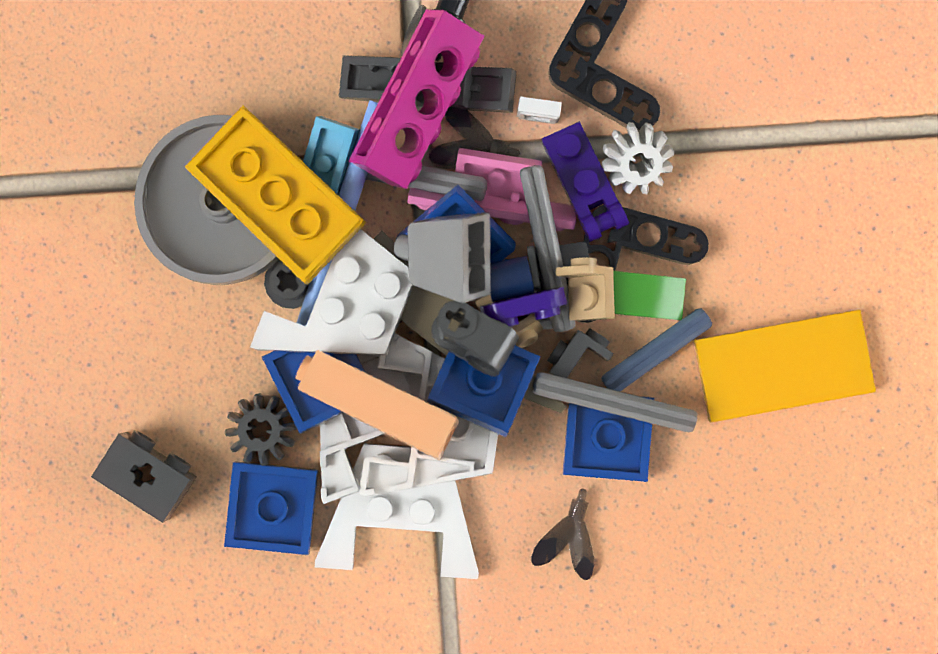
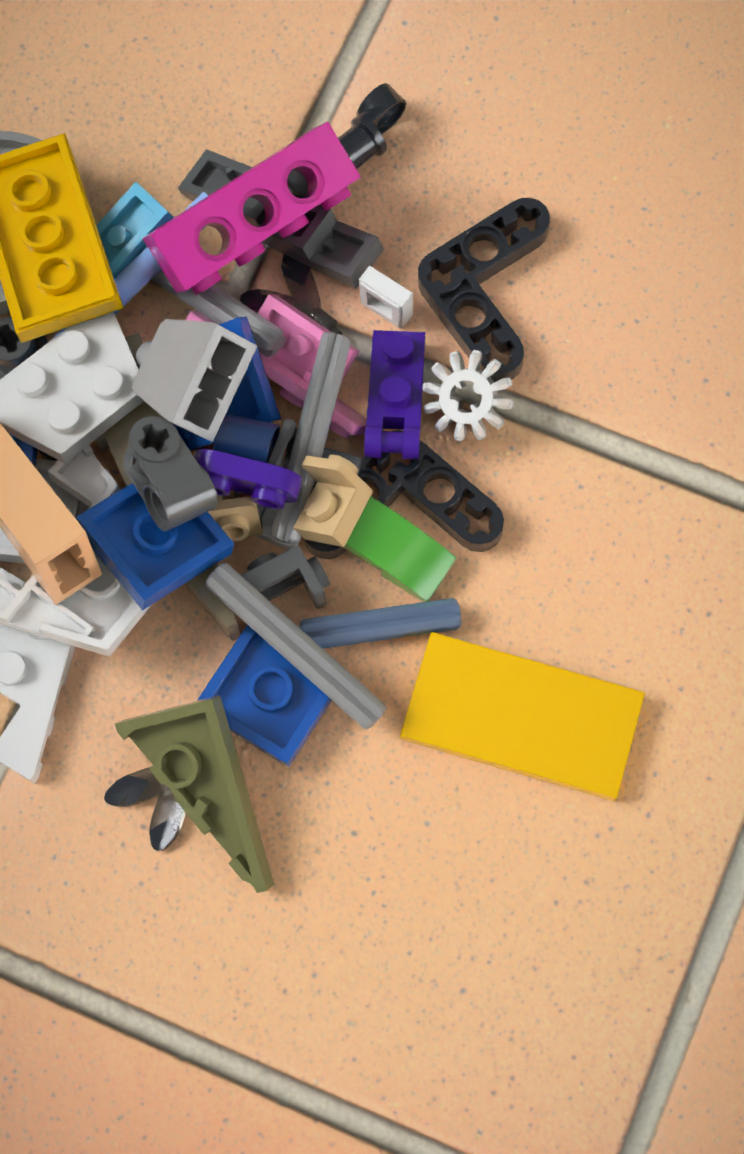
camera: 30 degrees right, 15 degrees down
(590, 512) = (199, 763): none -> olive wing

